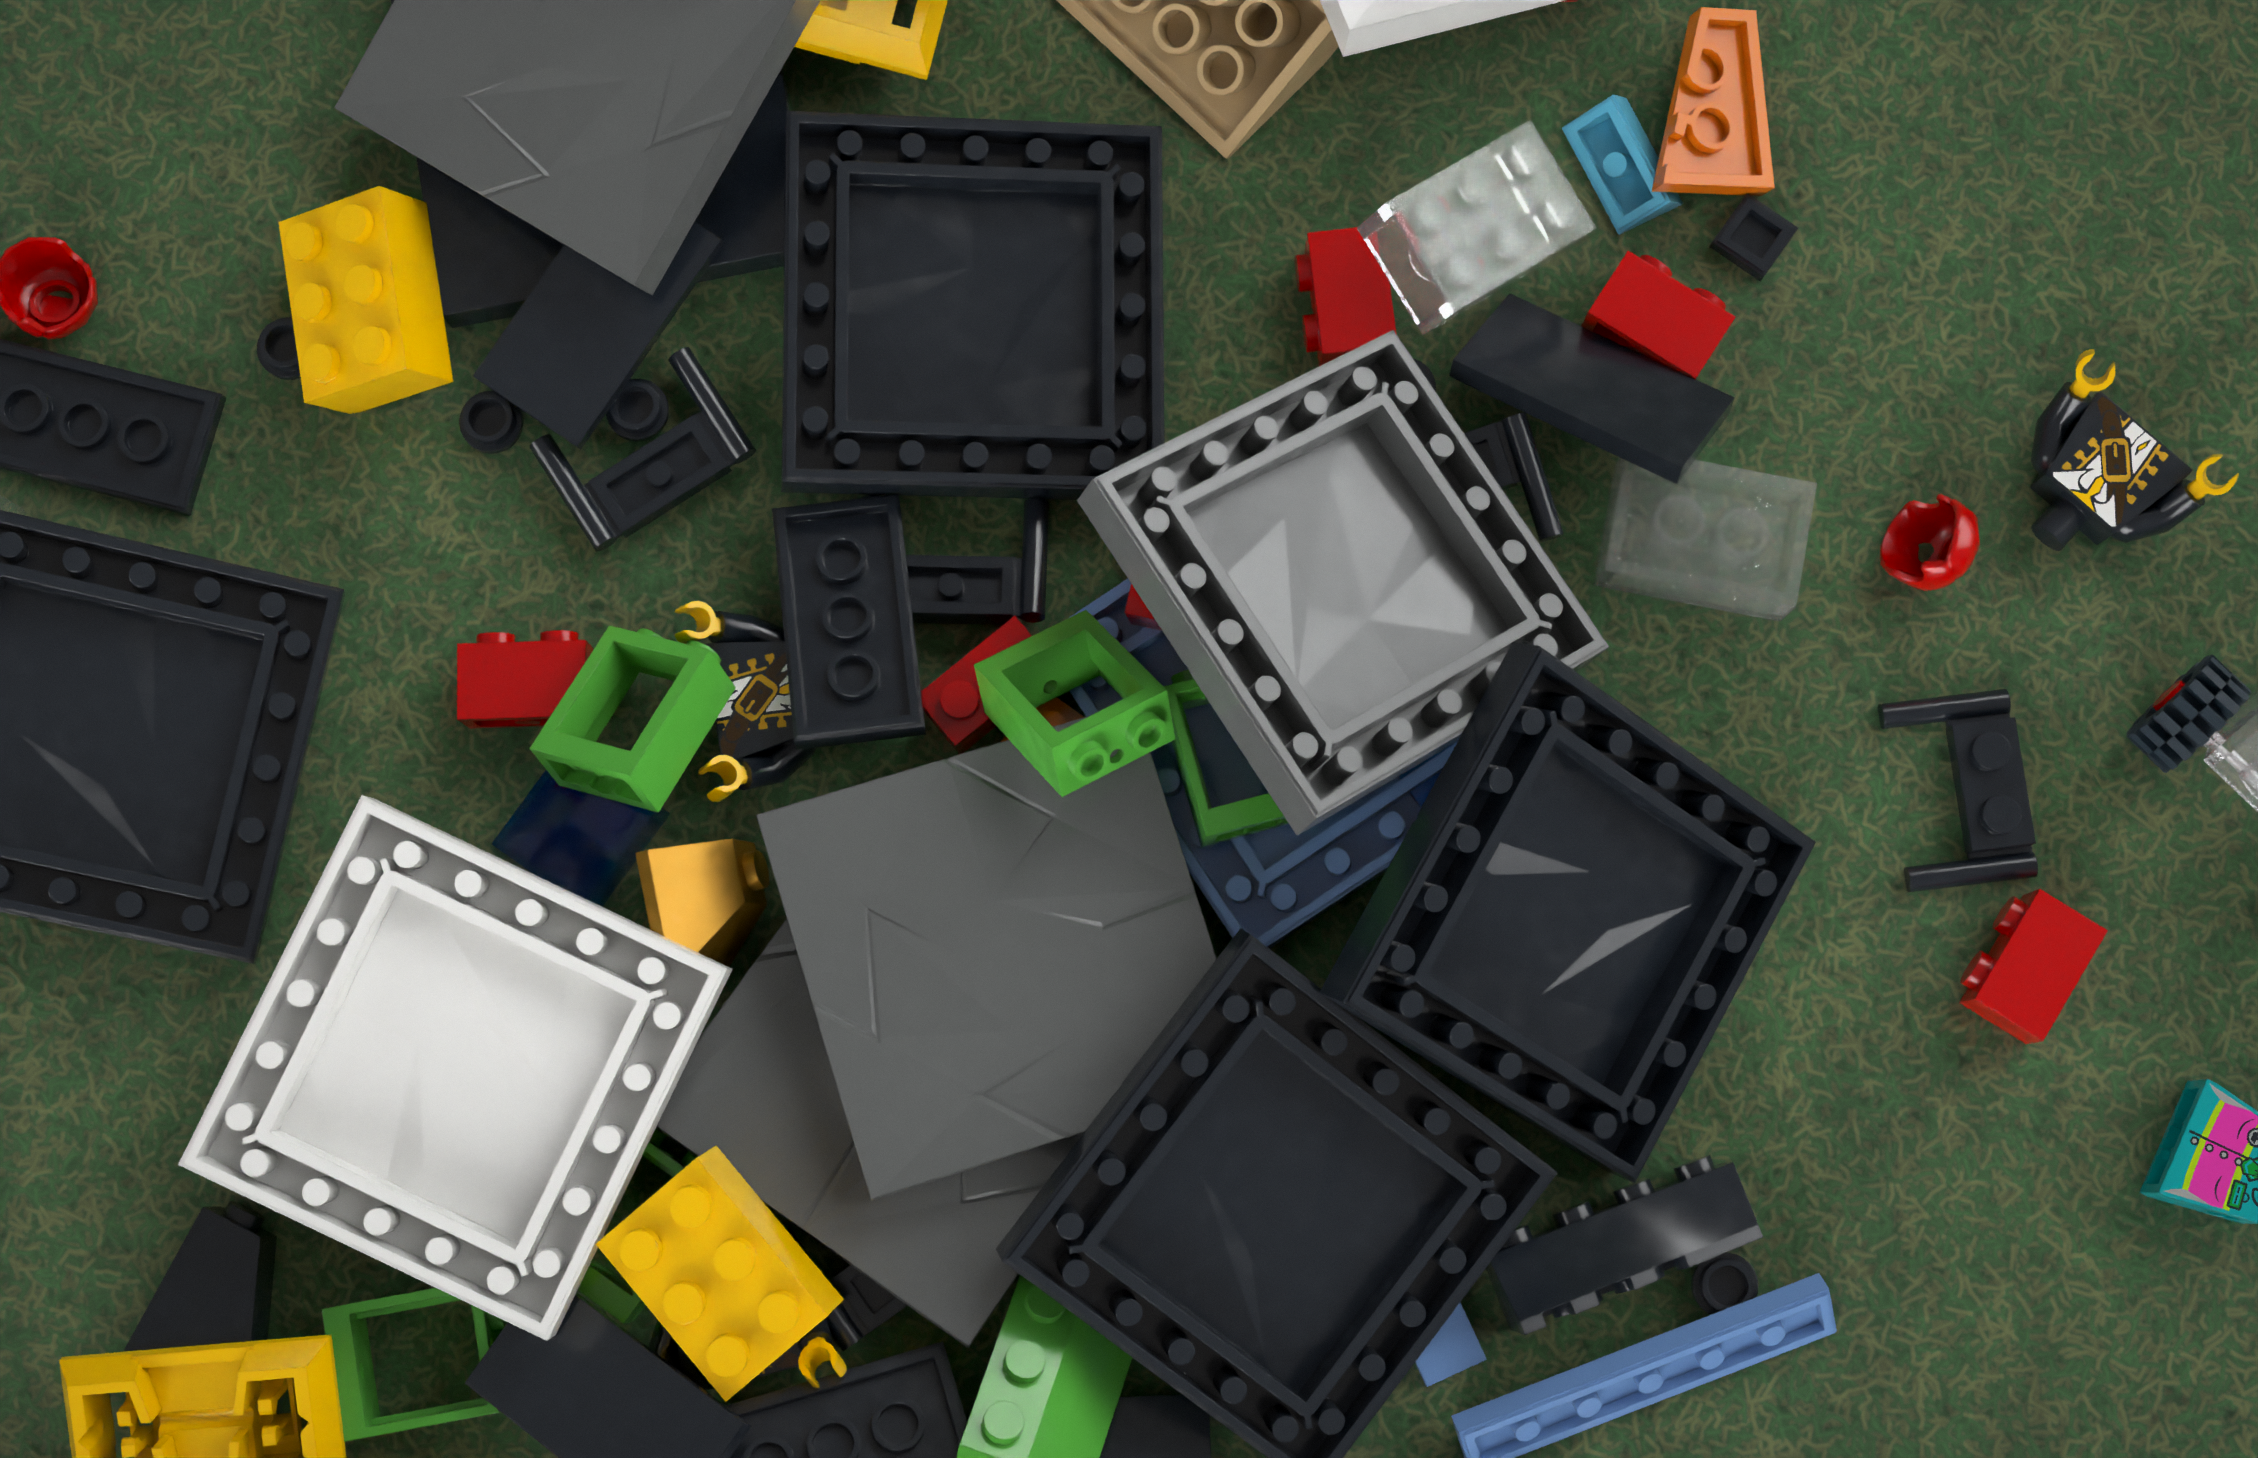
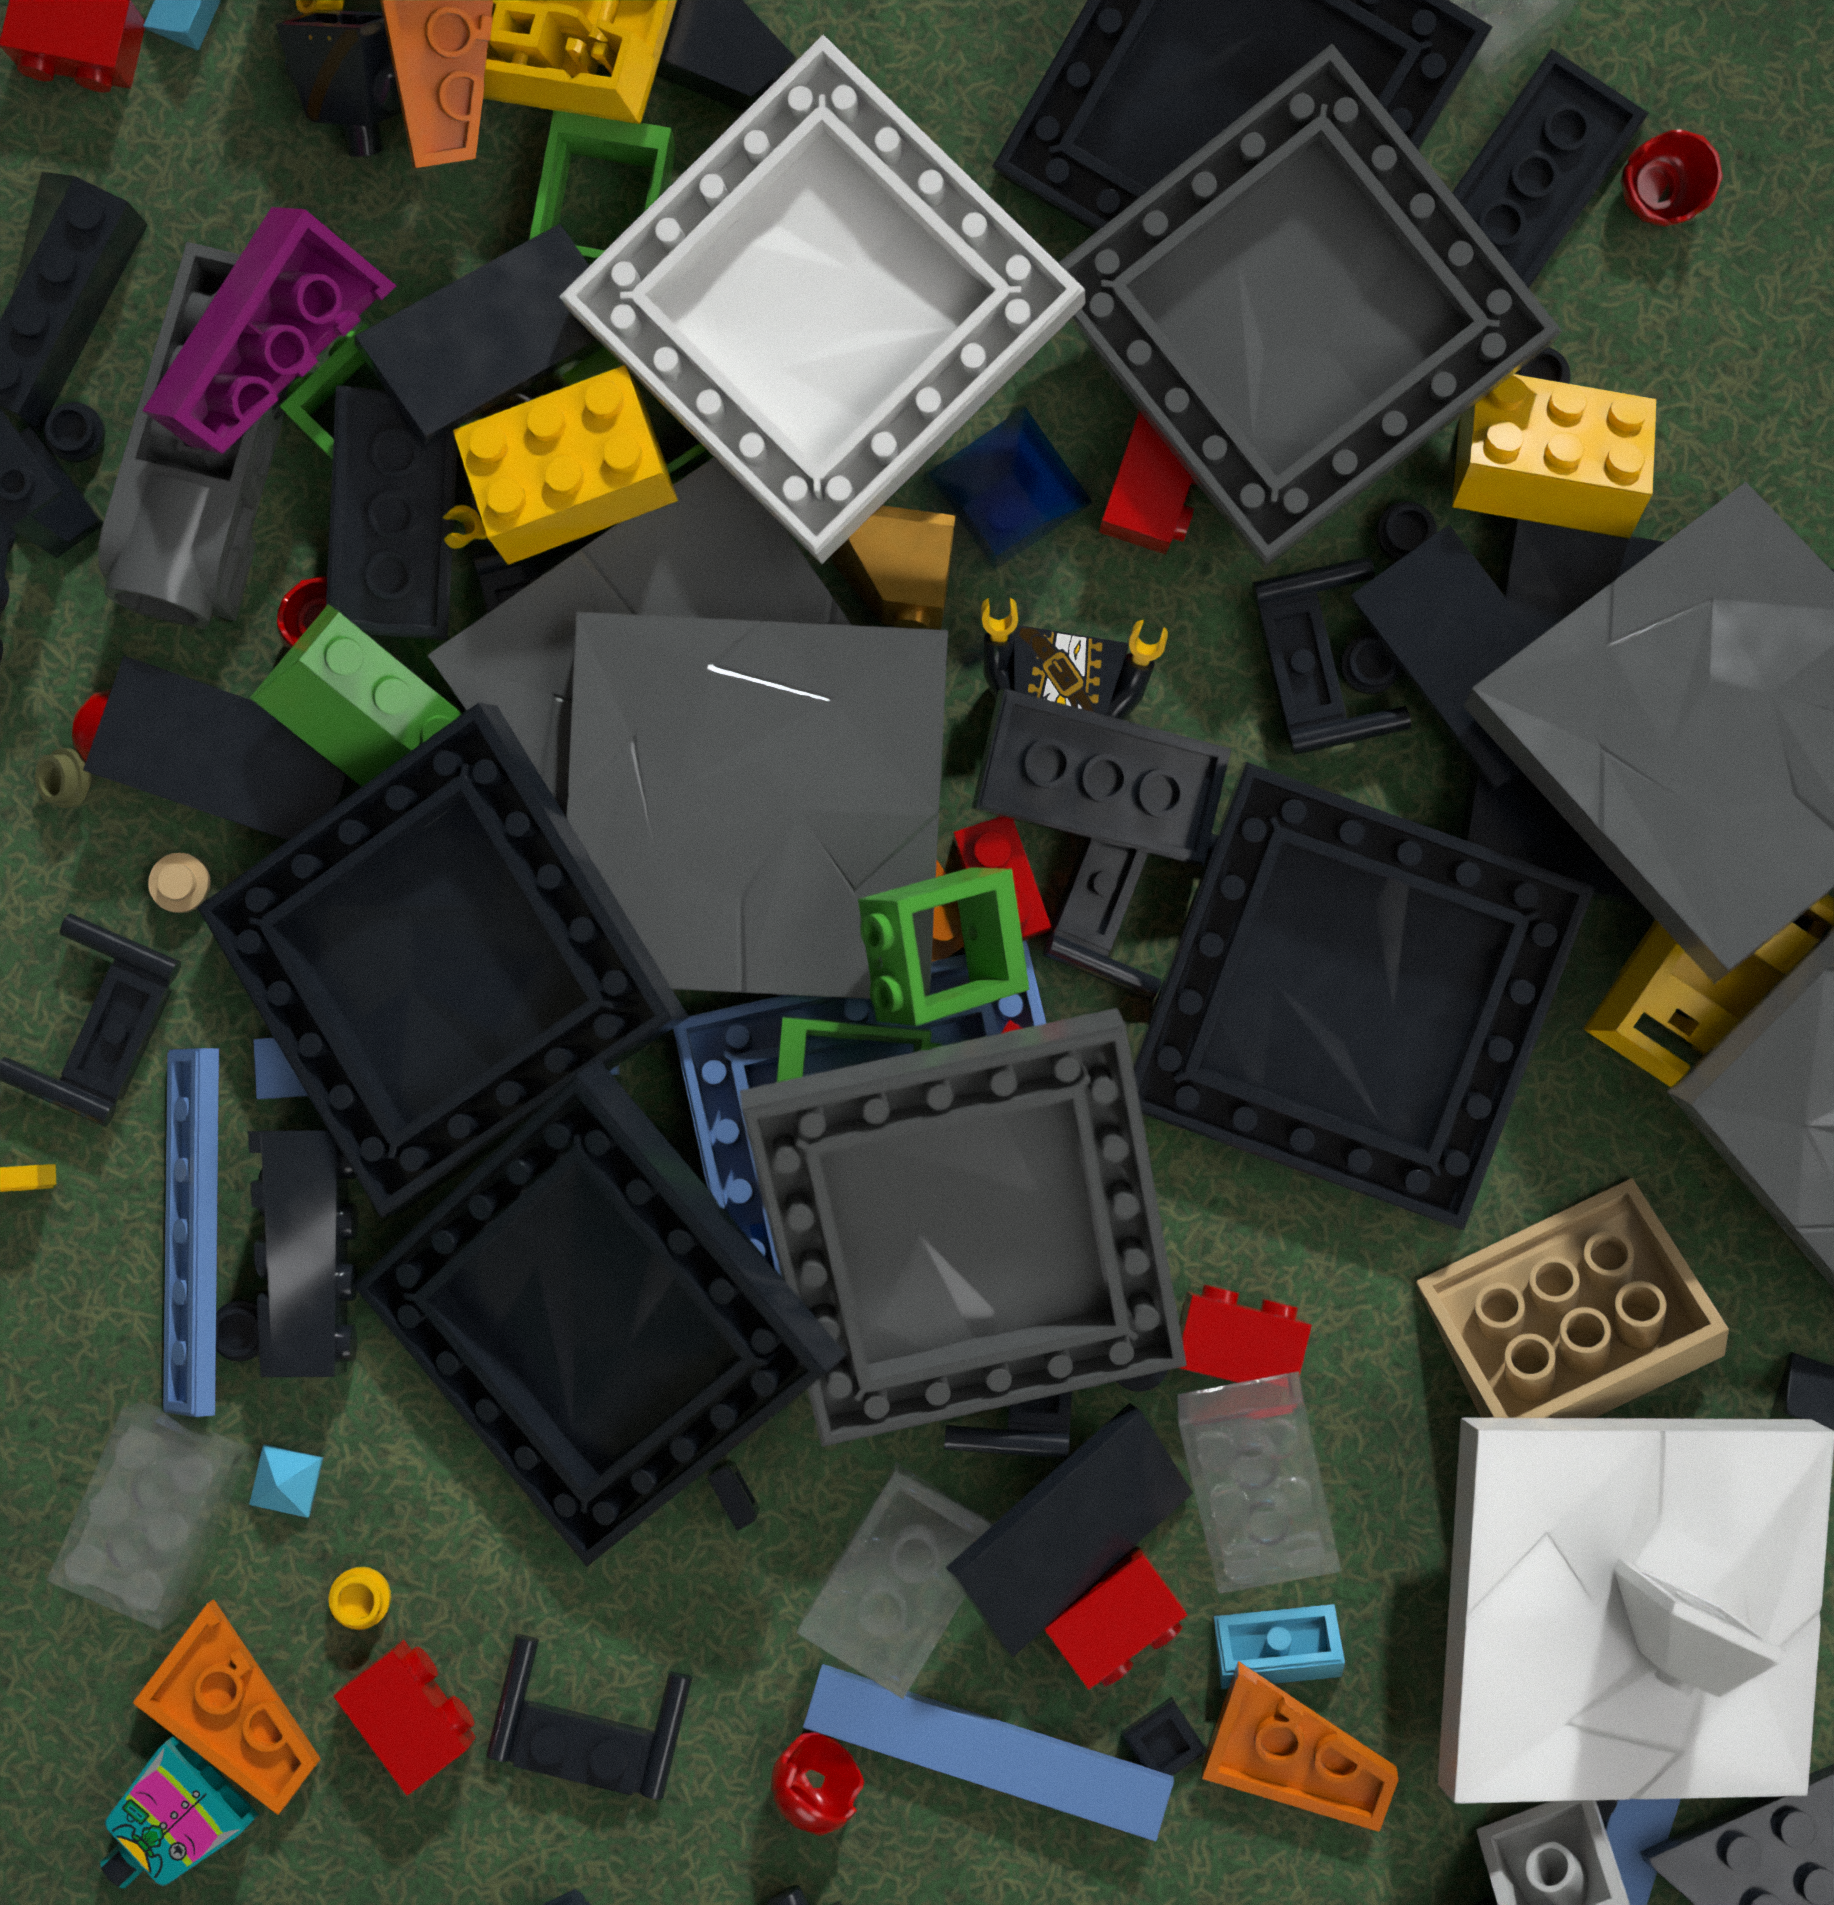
camera: 110 degrees right, 5 degrees up
(301, 589) = (1302, 306): none -> dark grey tile
(668, 741) = (1050, 584): bright green window -> none
(1692, 719) = (734, 1494): none -> black tile
(1832, 395) = (990, 1752): none -> medium blue tile
(1853, 1181) = (286, 1481): none -> medium azure slope
(1937, 1059) = (359, 1598): none -> yellow plate
(1943, 1301) = (149, 1514): none -> clear brick
(2101, 1147) = (229, 1712): none -> orange wing

